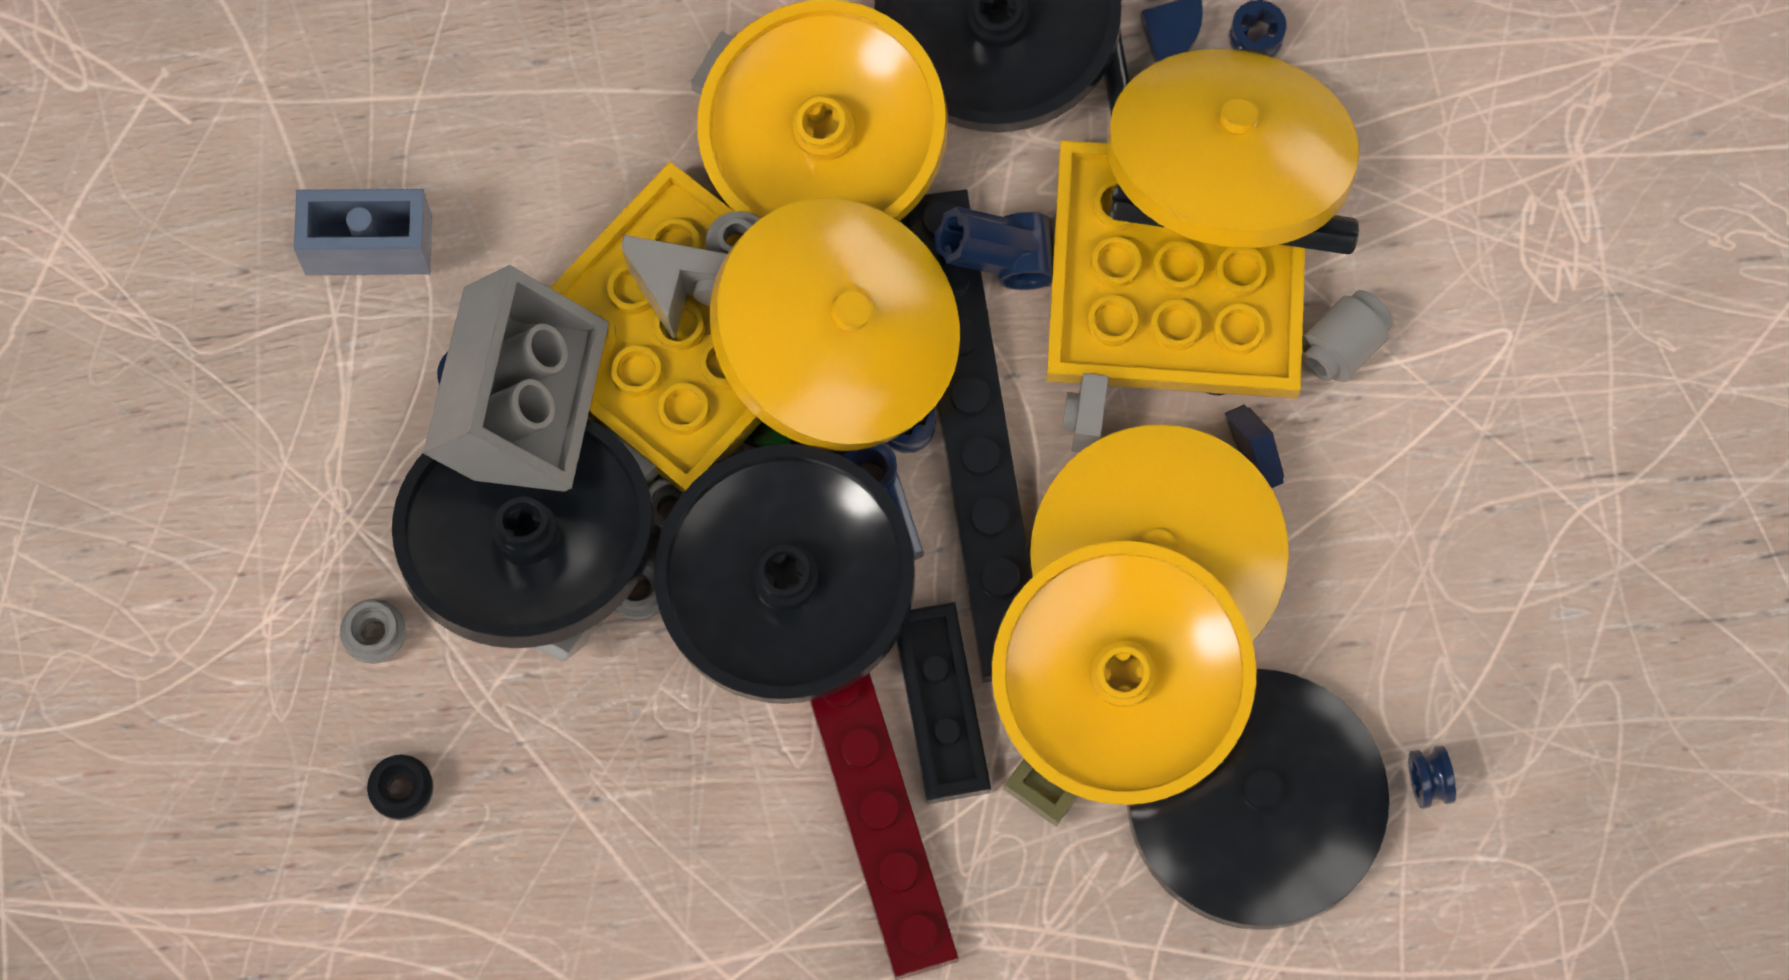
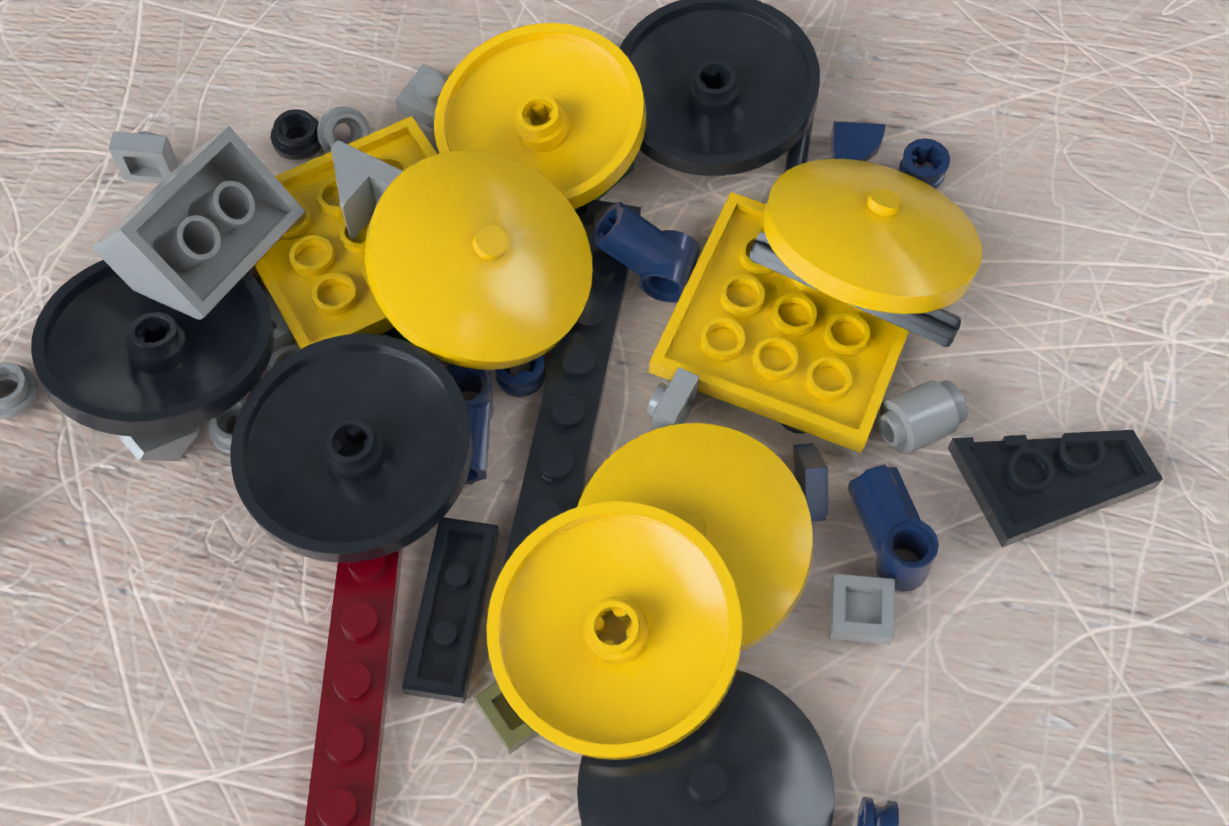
camera: 20 degrees right, 10 degrees down
(363, 231) = (149, 91): sand blue brick -> none
(390, 310) = (143, 156): none -> light grey plate
(545, 208) = (292, 125): none -> black plate
(612, 198) = (332, 118): none -> light grey plate
(671, 125) = (421, 95): none -> light grey plate
(1350, 565) = (862, 608): none -> light grey plate
(1352, 464) = (893, 524): none -> dark blue piece
(1495, 365) = (1051, 481): none -> black wing

